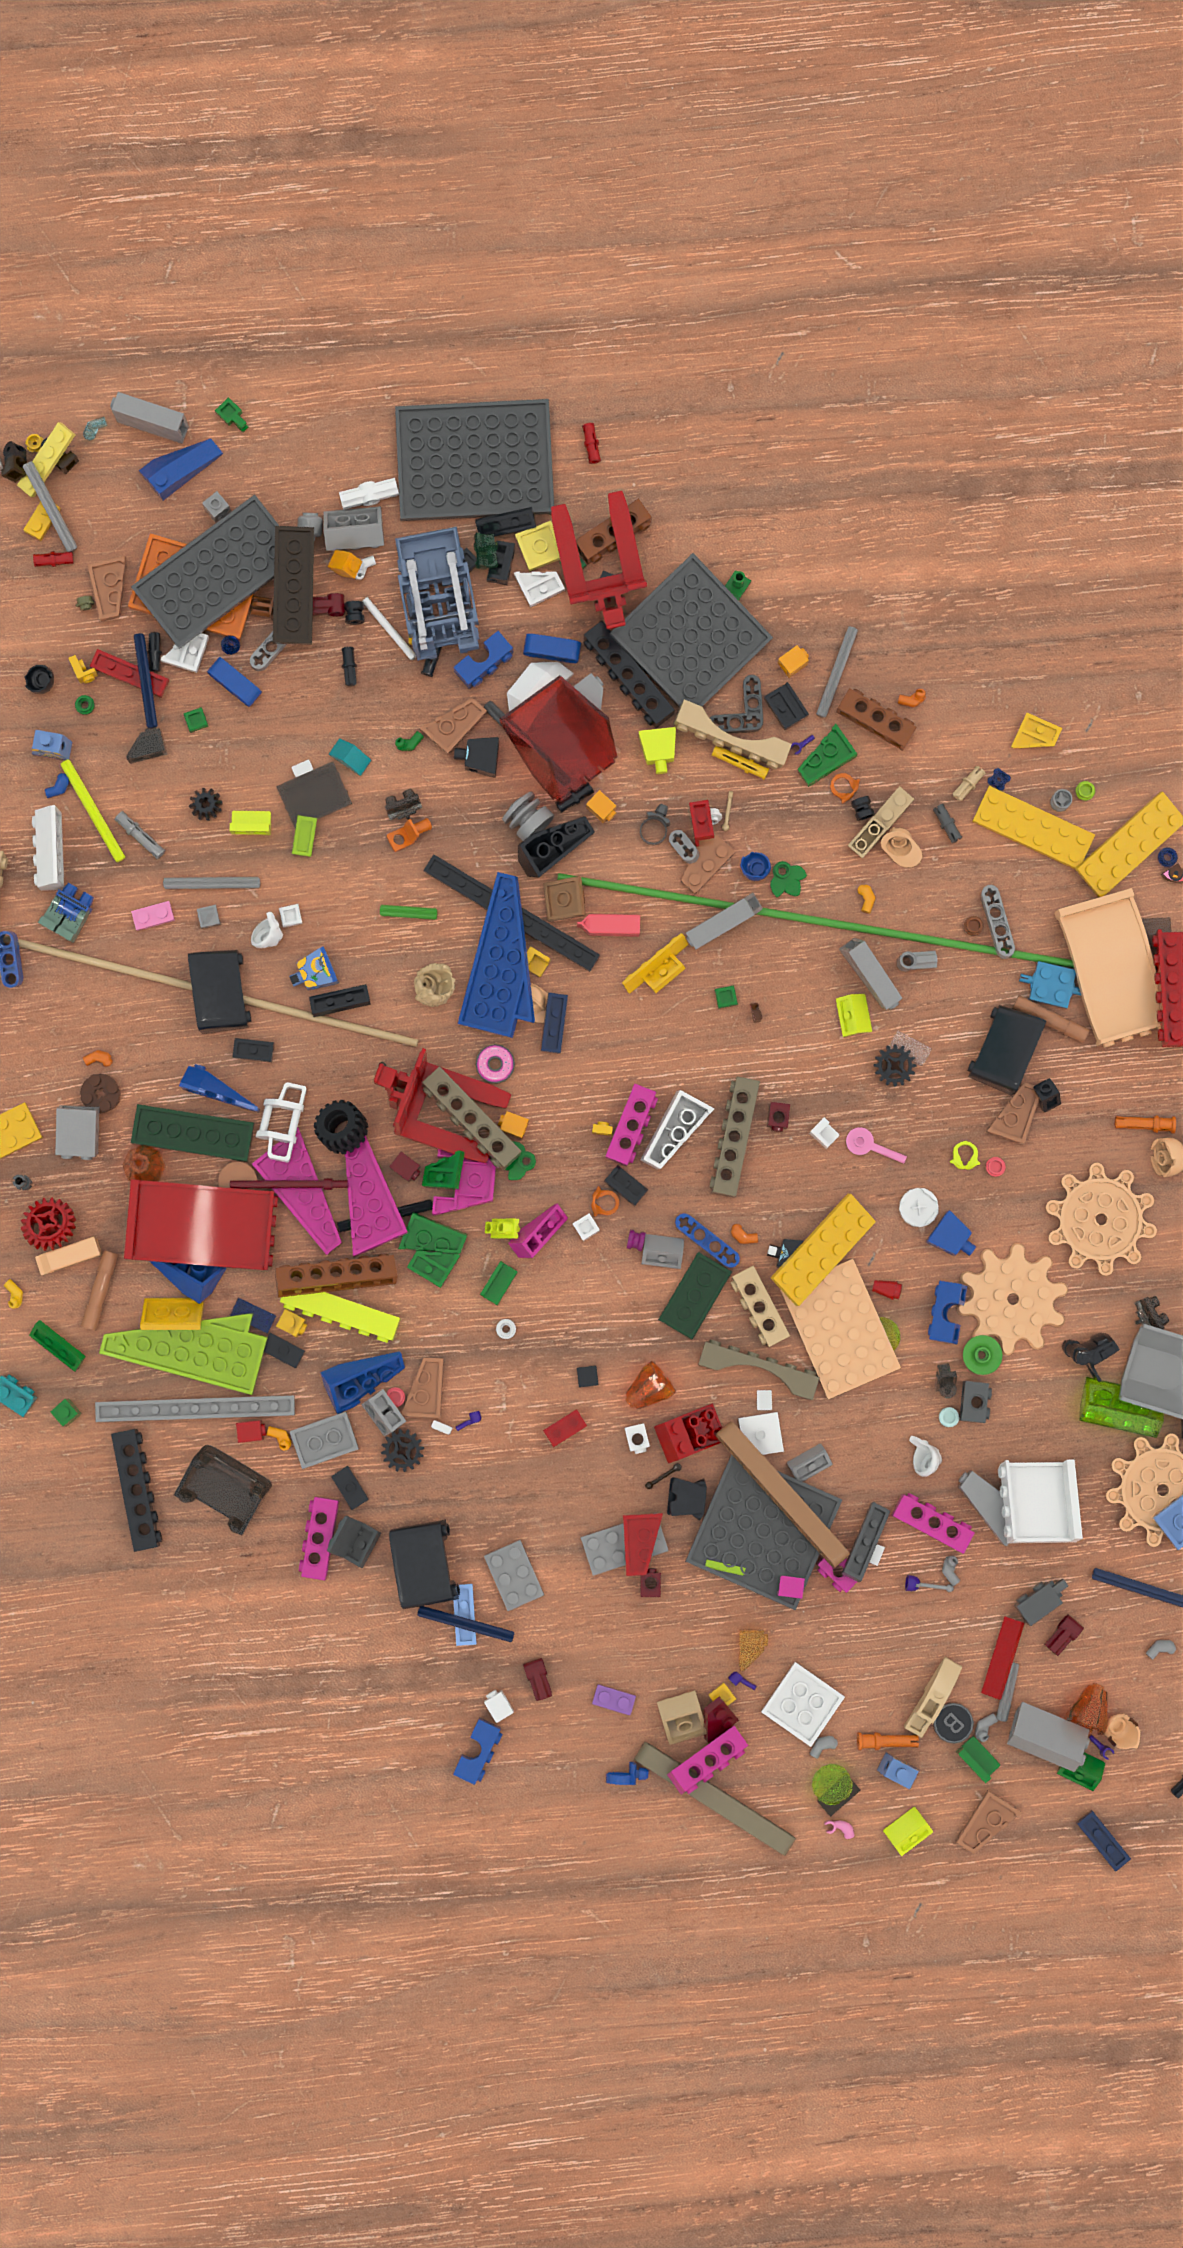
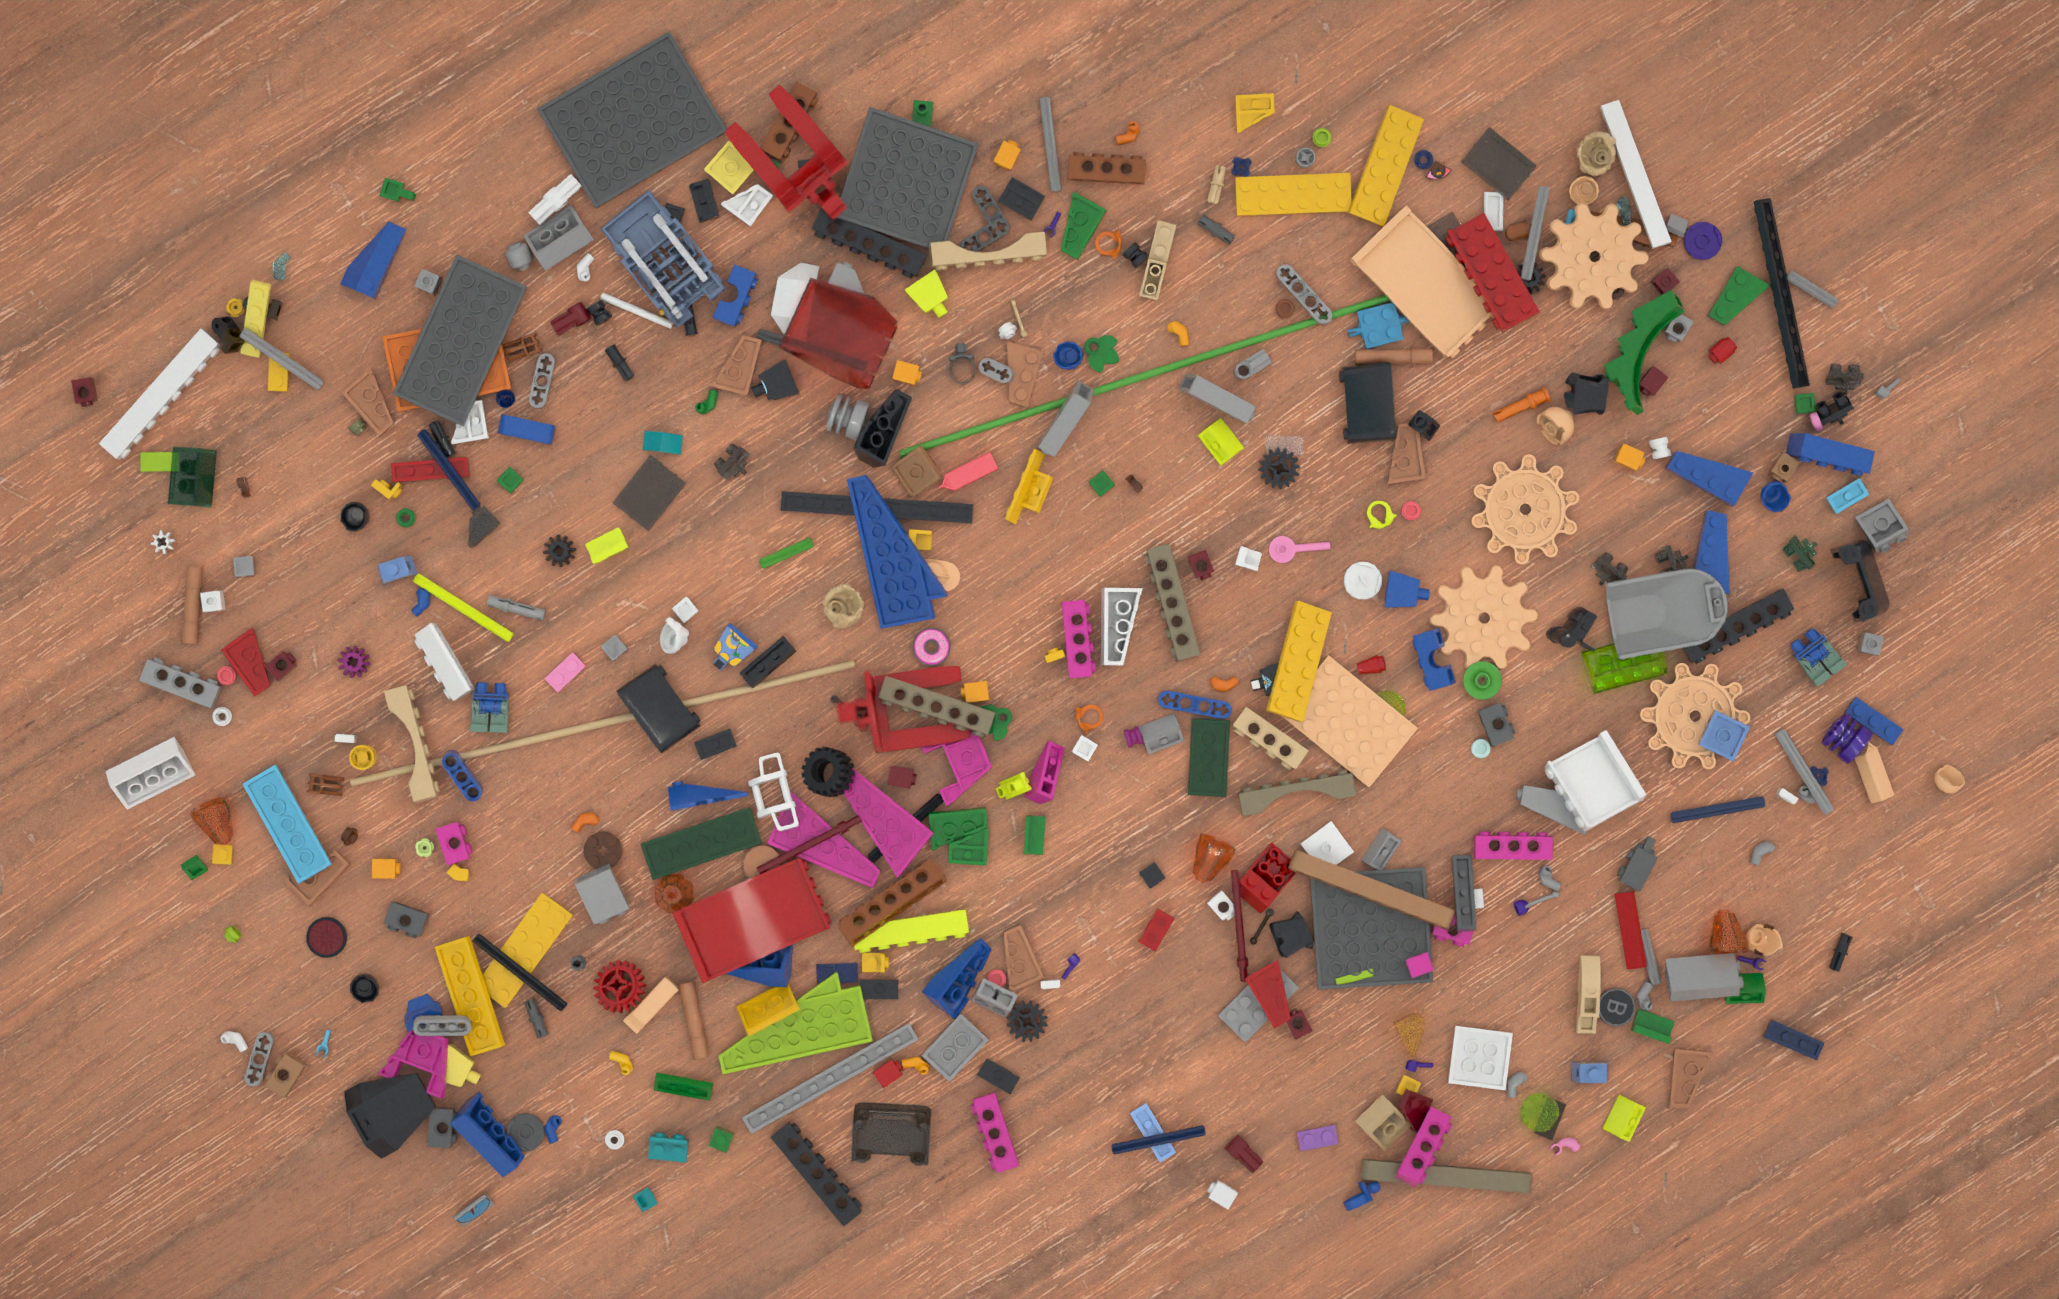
camera: 25 degrees left, 5 degrees up
(53, 559) = (308, 402): red pin -> none
(149, 417) = (326, 233): light grey brick -> none
(211, 882) = (601, 616): light grey axle -> none
(293, 585) = (534, 318): dark brown plate -> none
(302, 768) = (626, 474): white sticker -> none
(304, 835) = (660, 533): lime tile -> none
(345, 564) = (568, 274): light orange brick -> none
(353, 1541) = (1026, 1119): dark grey bracket -> none
(409, 832) = (751, 483): orange bracket -> none
(422, 1564) = (1095, 1109): black windscreen -> none
(444, 1173) = (938, 764): green wing -> none
(471, 1768) = (1226, 1258): blue arch -> none
(486, 551) = (686, 198): clear green hips -> none
(506, 1335) = (1061, 877): white plate -> none
(507, 522) = (690, 163): black plate -> none
(514, 1575) = (1177, 1077): light grey plate -> none
(552, 648) = (789, 254): blue beam -> none
(554, 1023) = (964, 584): dark blue plate -> none
(575, 798) = (879, 376): black pin -> none
(591, 443) = (727, 51): red pin -> none
(626, 1185) = (1100, 693): black hinge -> none
(629, 1499) = (1242, 960): none -> dark red bar
(701, 821) = (1000, 341): red panel -> none
(761, 771) = (1007, 269): yellow pin -> none
(764, 1400) = (1314, 816): white sticker -> none
(877, 1741) = (1559, 1056): orange pin -> none
(901, 847) = (1186, 272): light nougat piece -> none
(925, 1458) = (1478, 794): white hat -> none
(946, 1381) = (1462, 720): clear smoke hips -> none
(1067, 1631) = (1674, 878): dark red piece -> none

